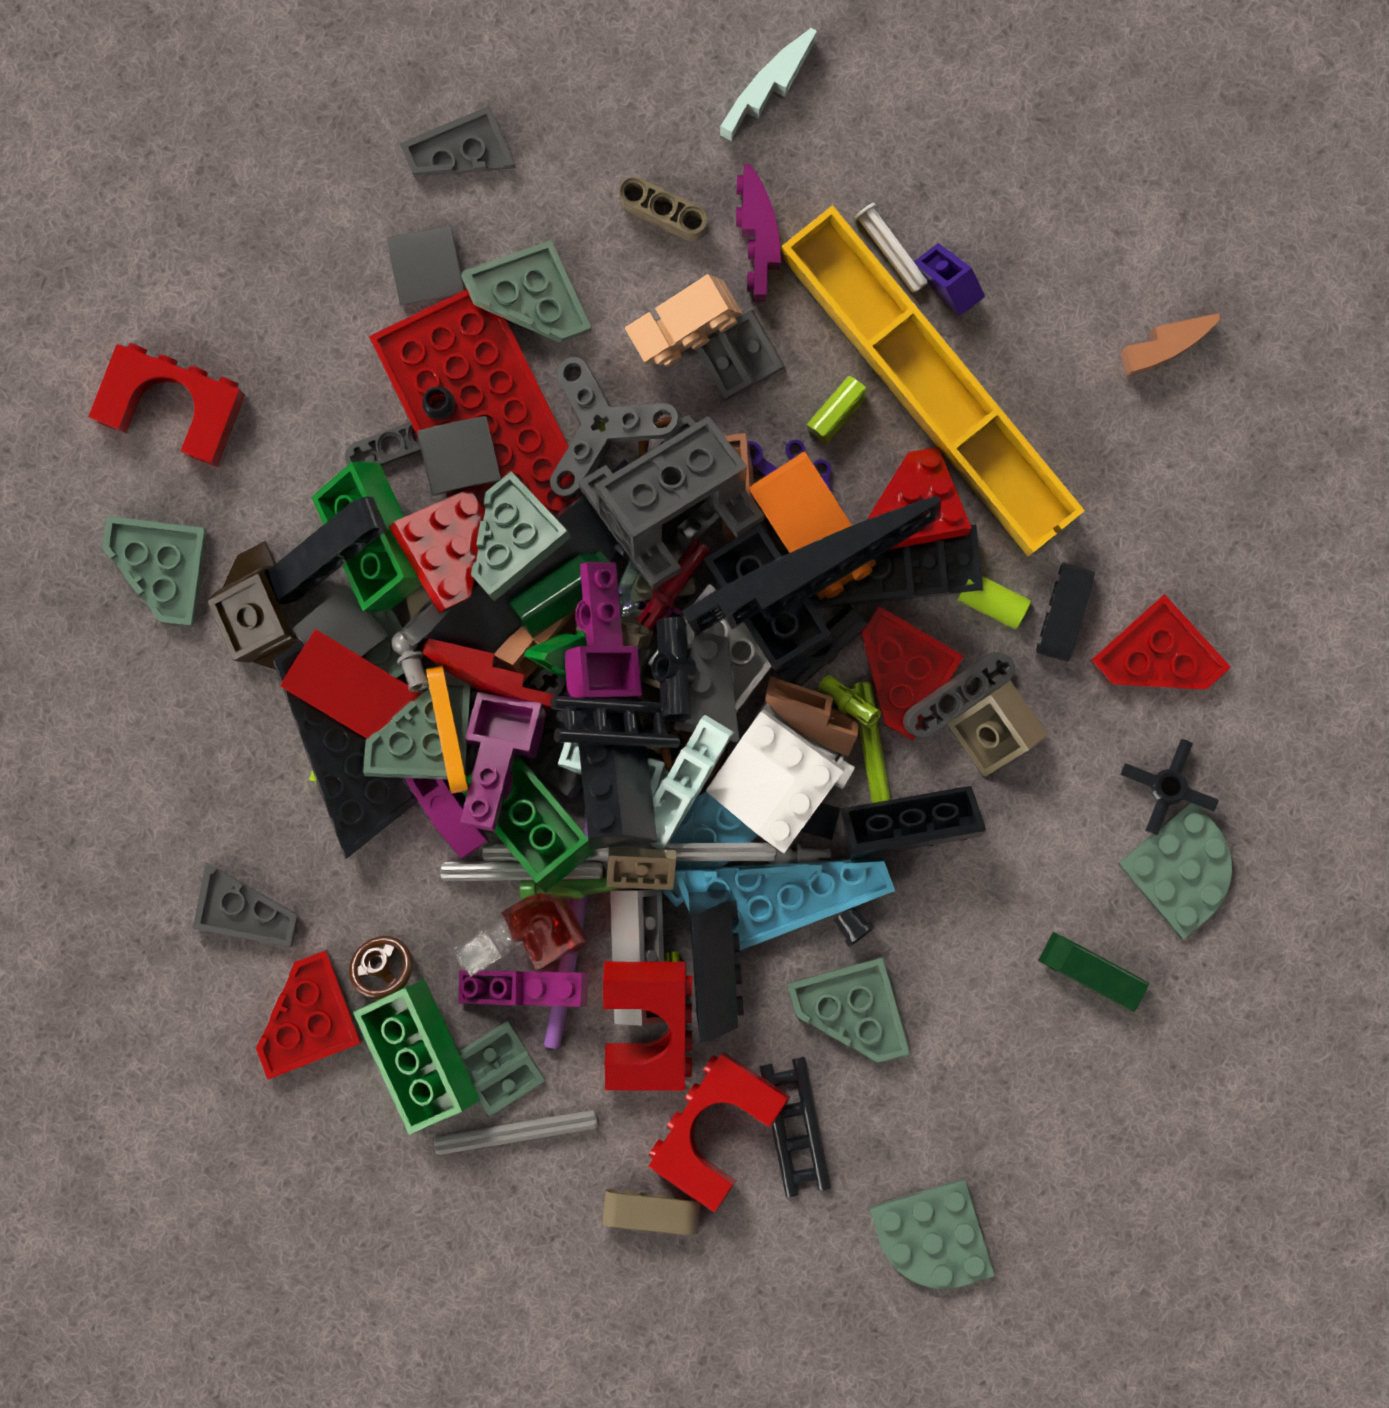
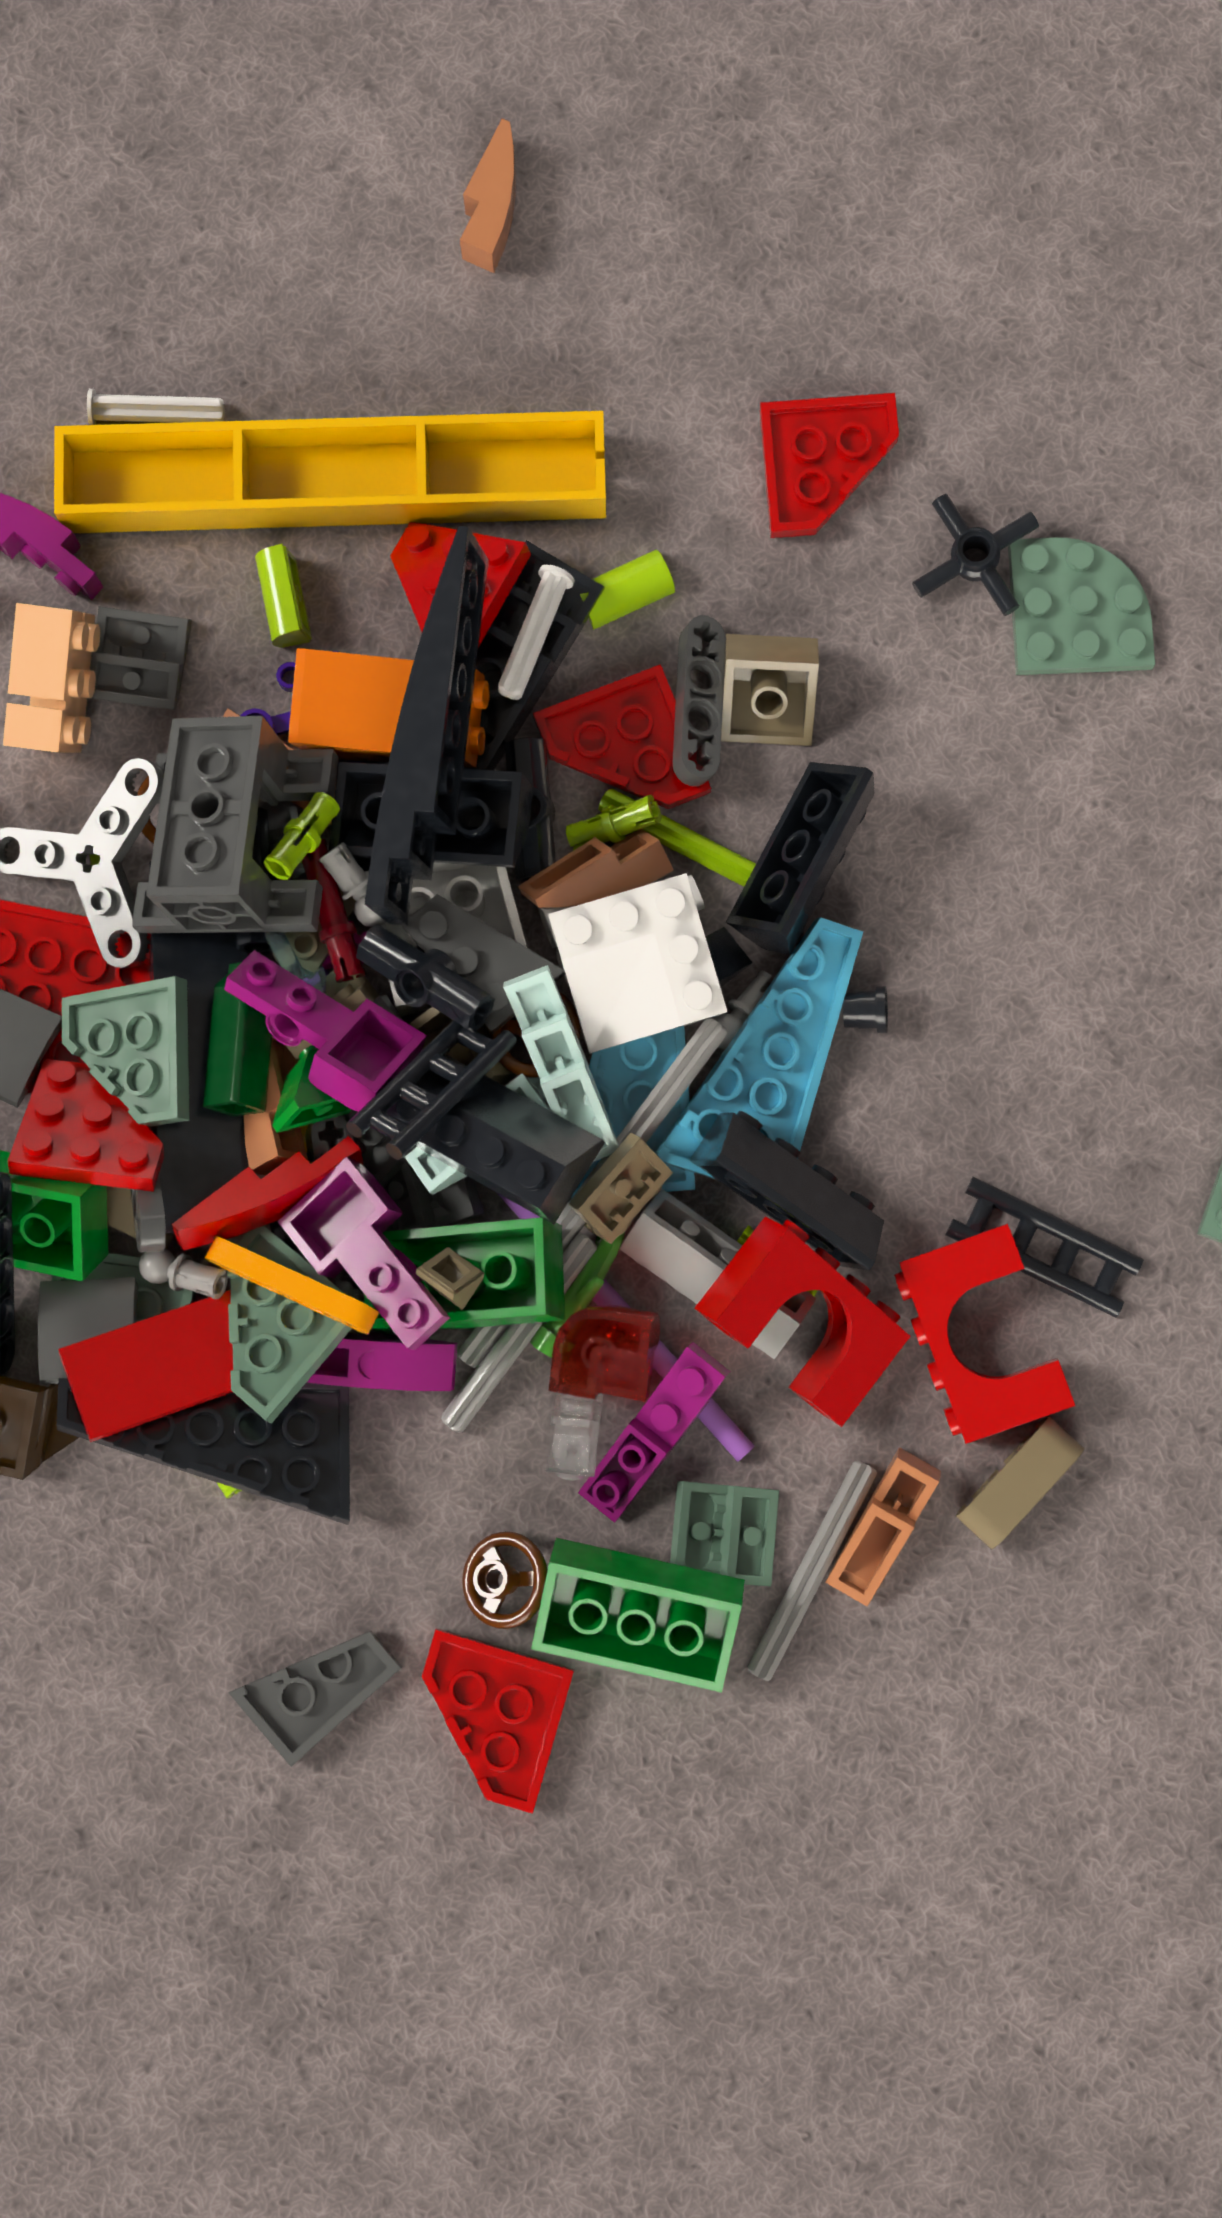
camera: 50 degrees left, 5 degrees down
(519, 813) = (451, 1276): none -> dark tan slope
(569, 1154) = (884, 1526): none -> nougat slope
(681, 540) = (287, 855): none -> lime pin
(698, 583) = (351, 881): none -> light grey pin
(853, 1007) = (960, 1079): sand green plate -> none
(922, 573) = (534, 630): none -> white axle
(950, 279) = (239, 369): dark purple slope -> none
(1066, 612) = (699, 520): black beam -> none
(1093, 972) = (1119, 786): dark green piece -> none

